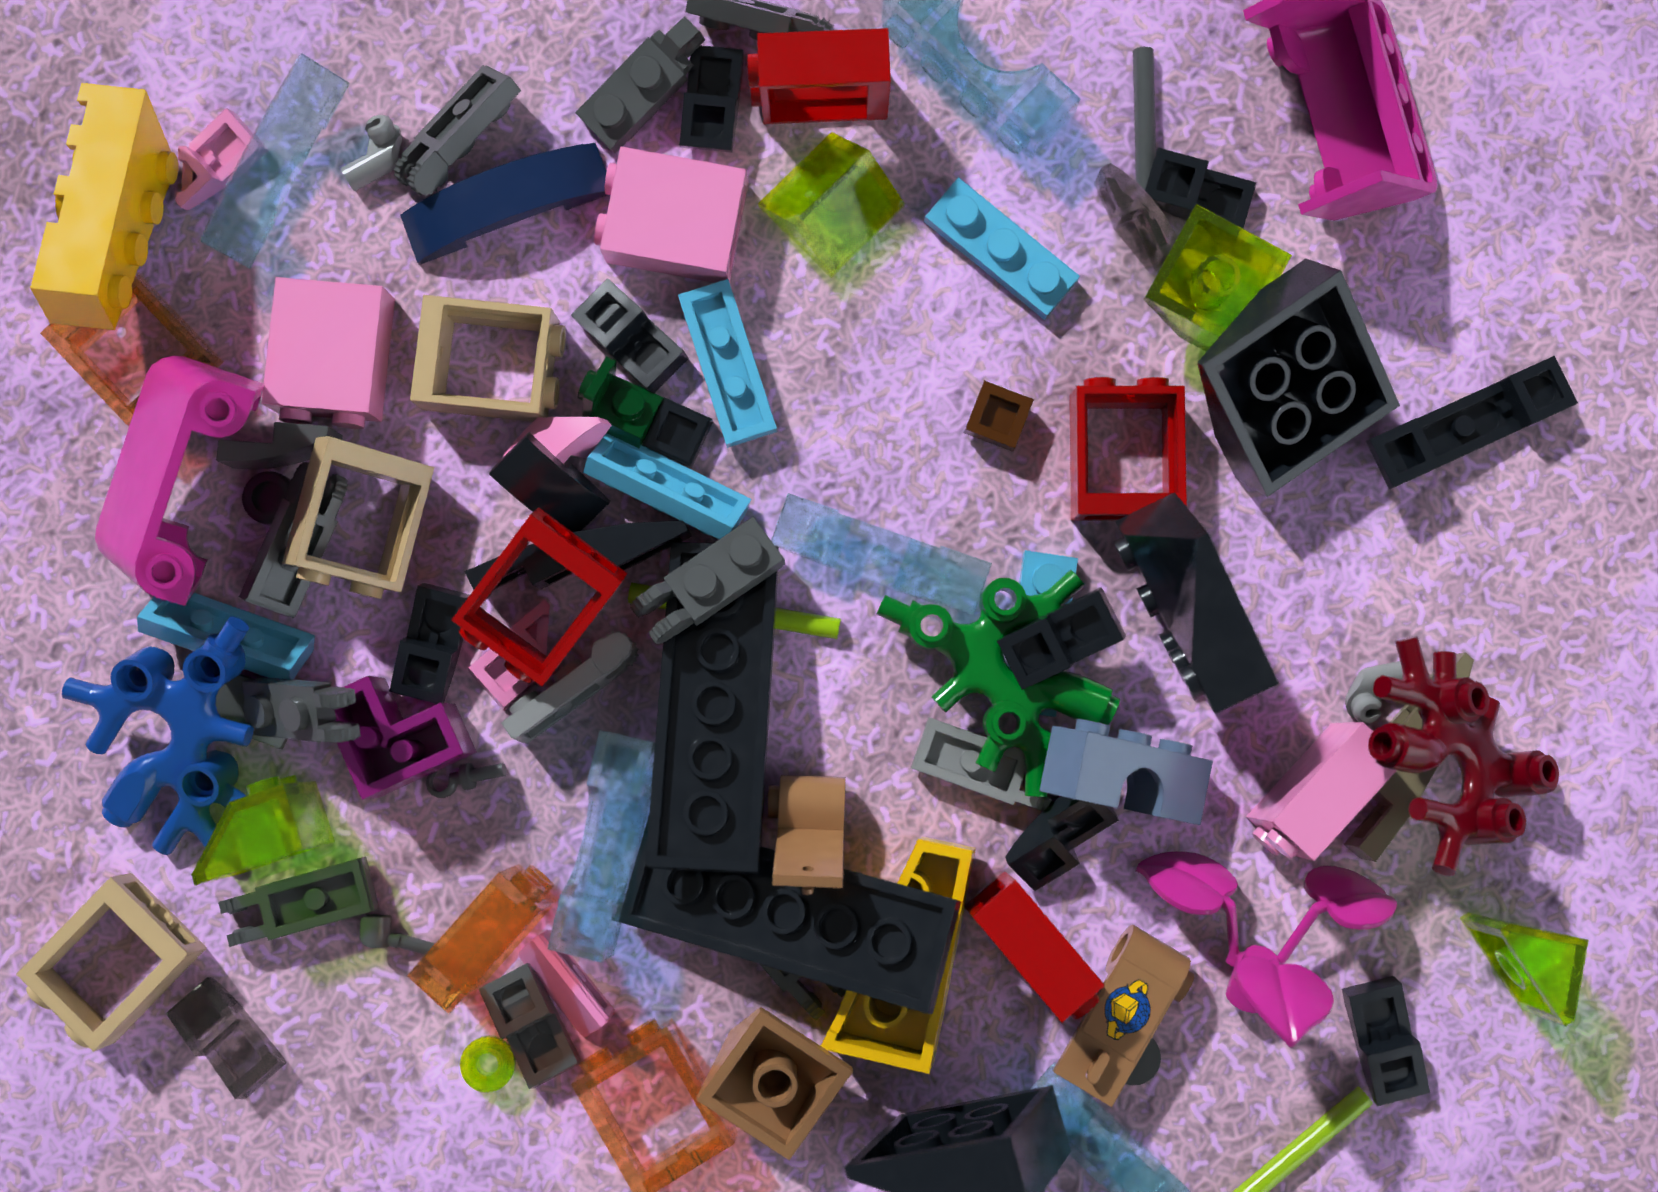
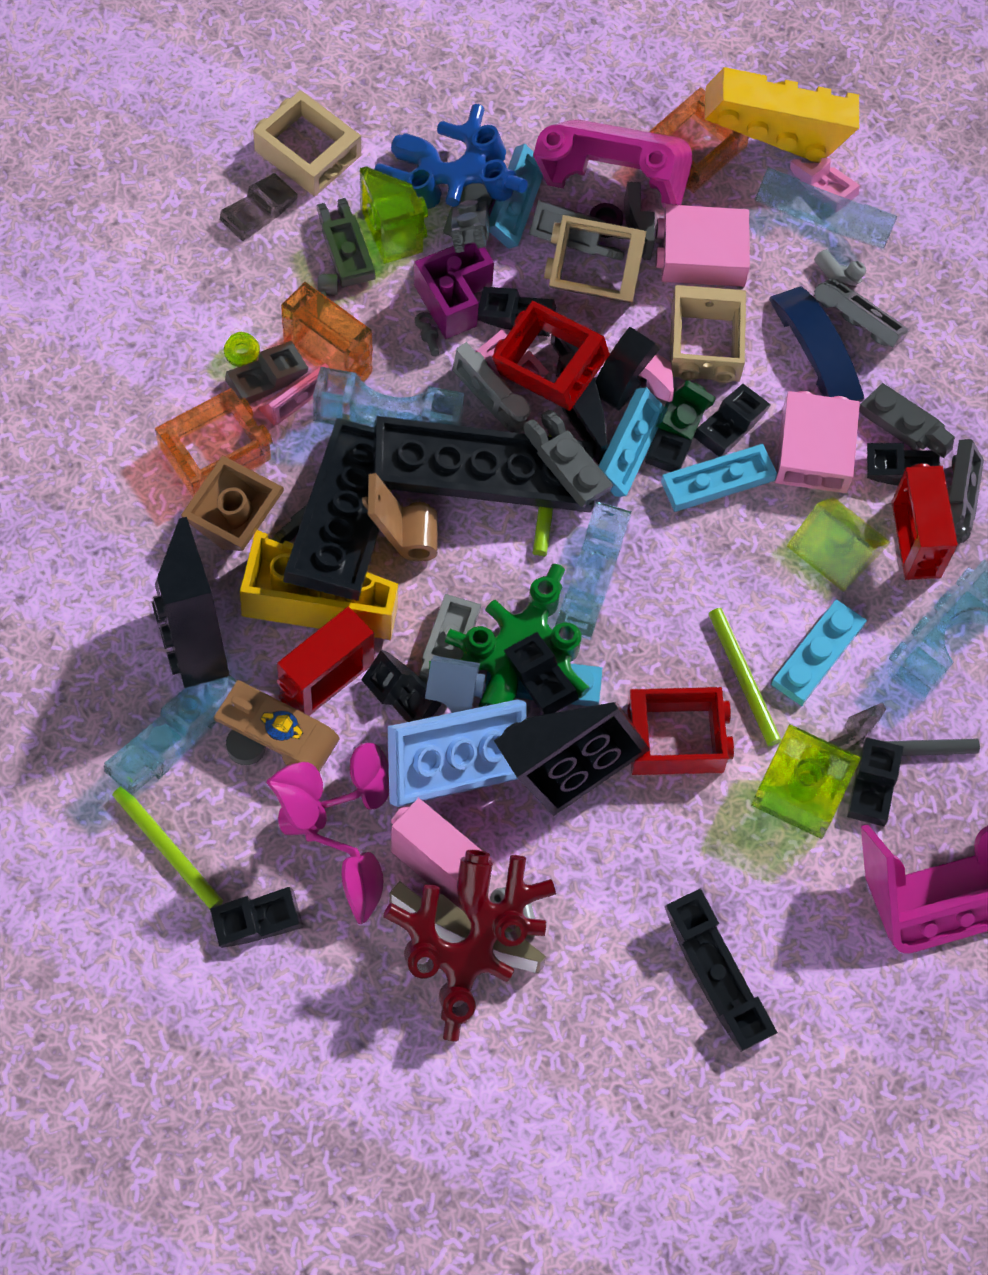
camera: 80 degrees right, 20 degrees down
(998, 416) = (697, 648): reddish brown plate -> none
(1036, 354) = (745, 677): none -> lime bar
(1190, 766) = (450, 752): none -> light blue tile
(1293, 378) = (739, 822): black slope -> none
(1534, 963) = (319, 1001): clear neon green slope -> none

